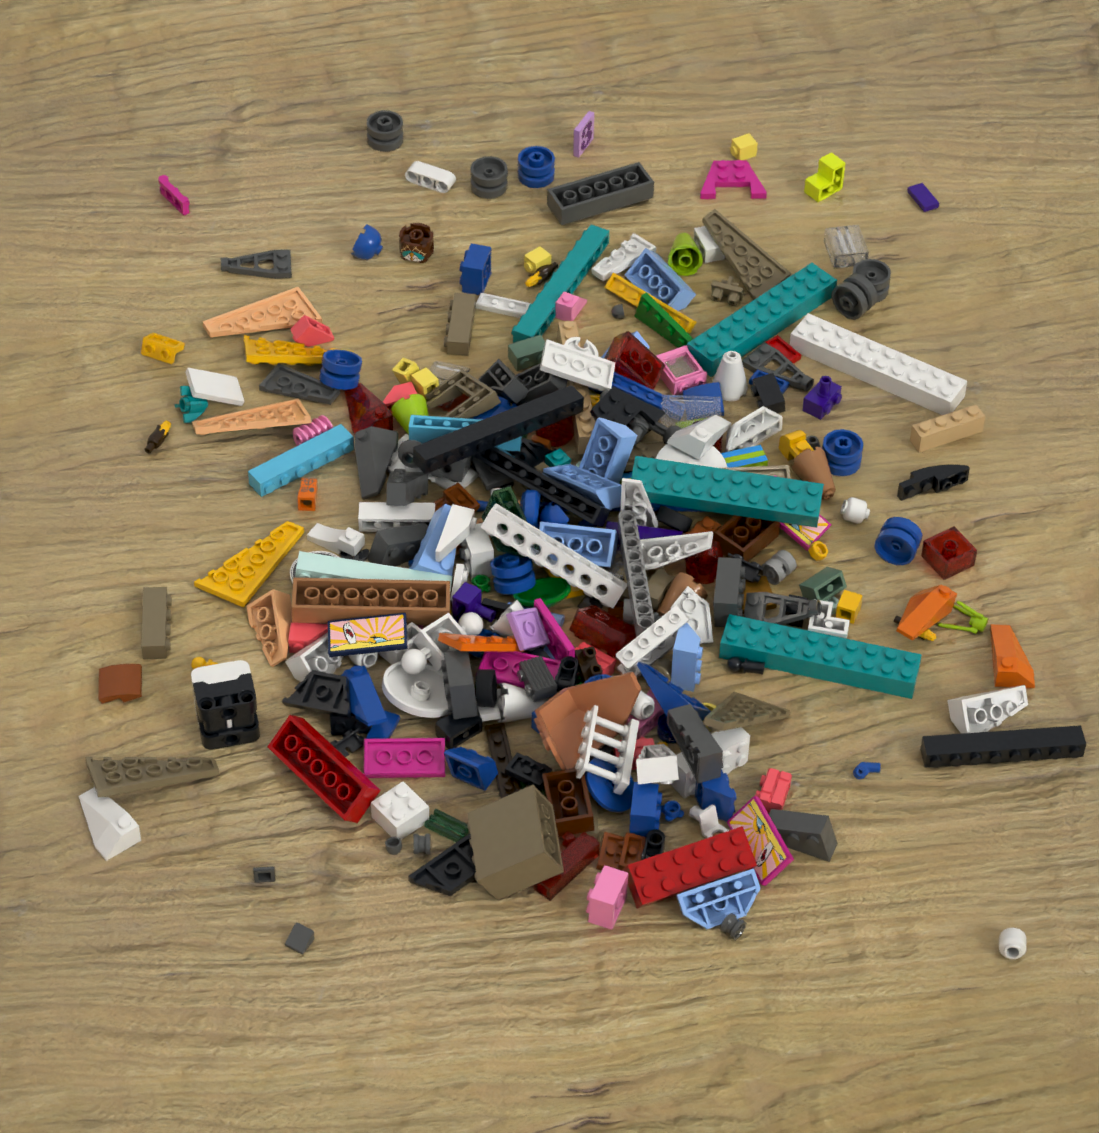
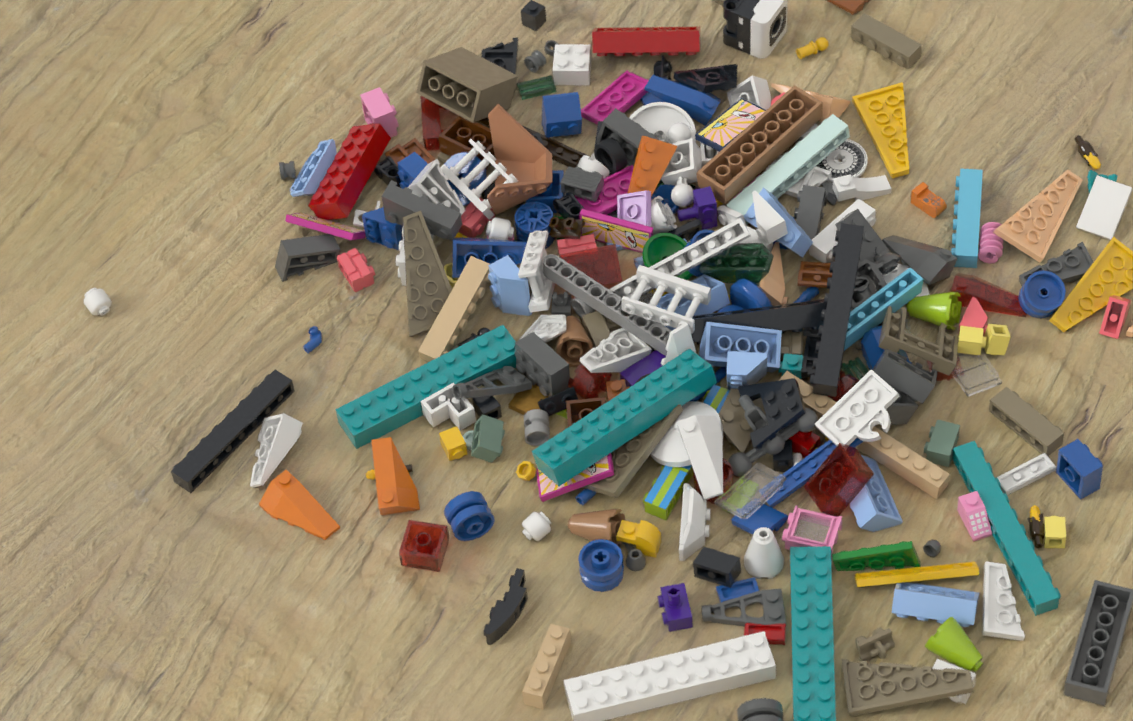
camera: 140 degrees right, 5 degrees up
(370, 884) = (533, 15): none -> black brick
(589, 540) = (666, 283): none -> white fence
(743, 679) = (456, 310): none -> tan brick
(977, 620) = (348, 513): lime plant -> none

